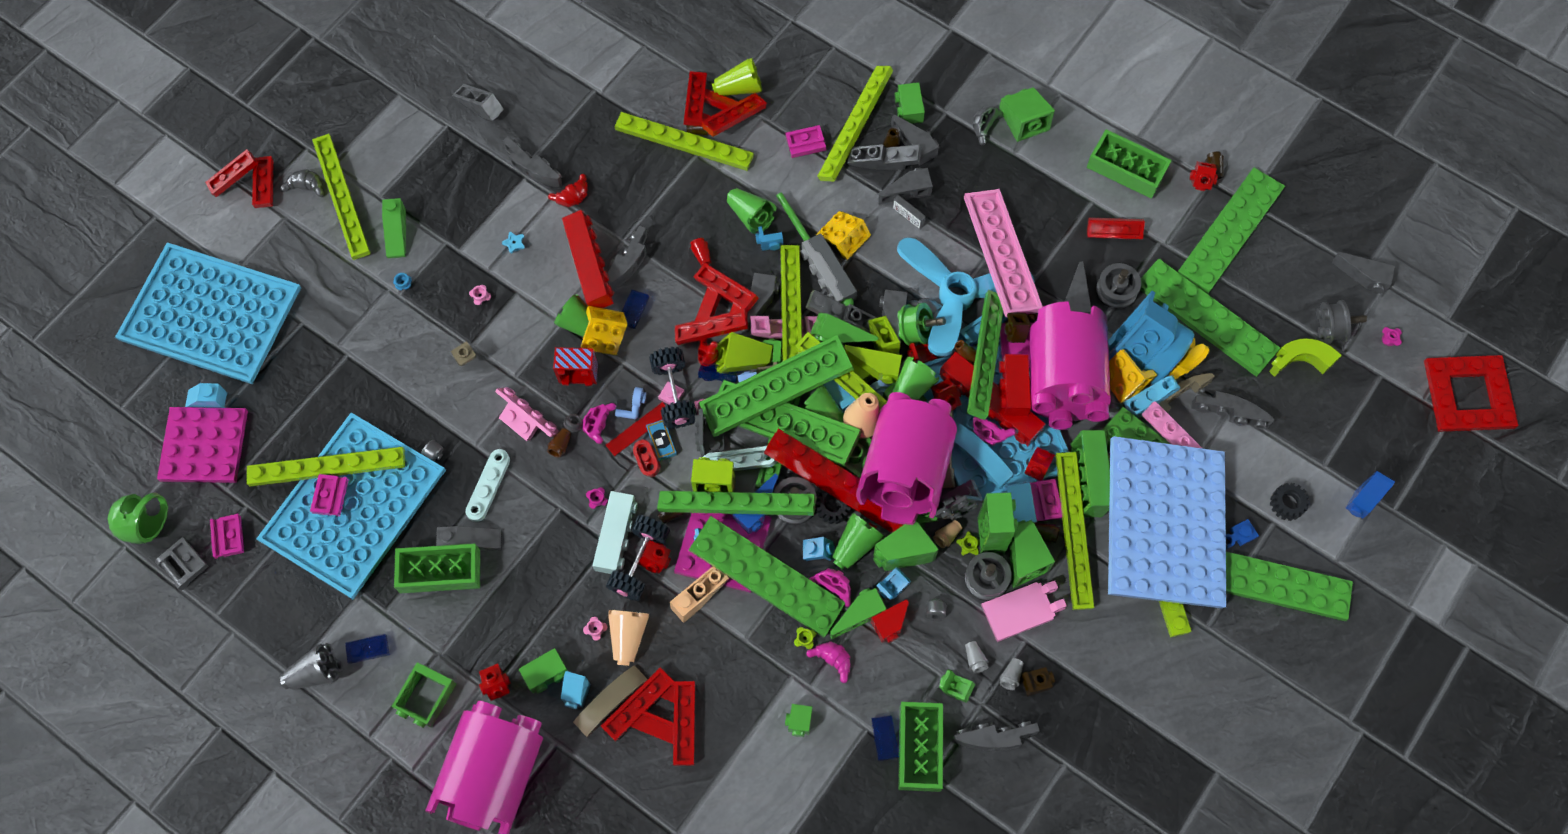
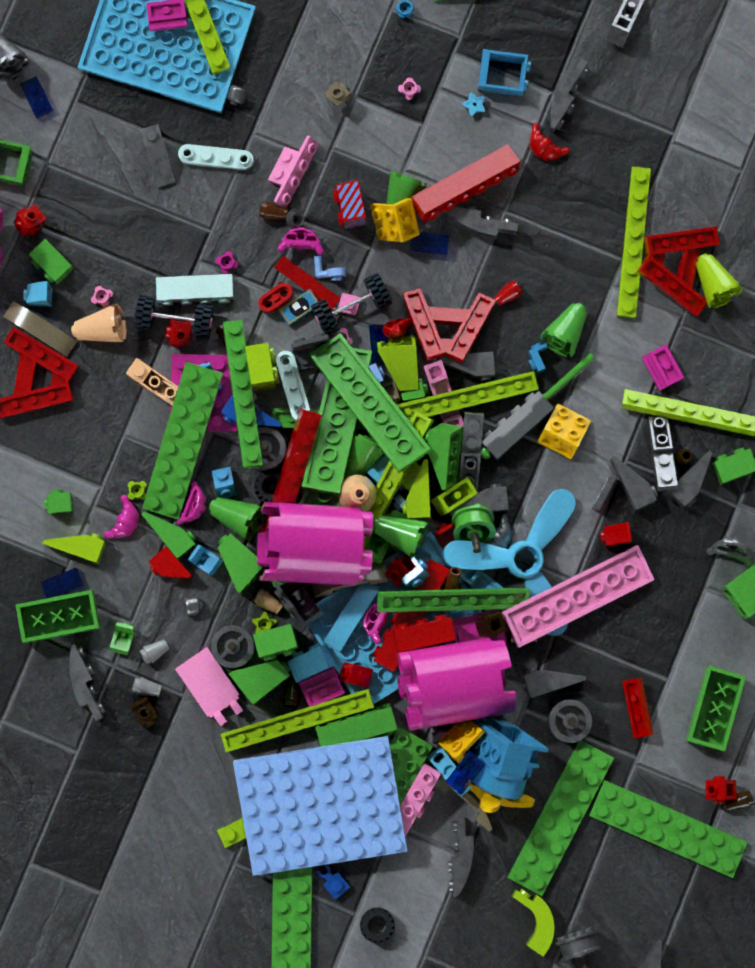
camera: 75 degrees right, 15 degrees up
(437, 568) = (121, 136): bright green brick -> none
(486, 226) = (504, 57): none -> dark azure window
(852, 704) = (82, 546): none -> lime slope
(952, 207) = (616, 535): none -> red slope
(958, 379) = (417, 575): none -> dark azure bracket
(1160, 372) = (465, 772): none -> clear blue plate

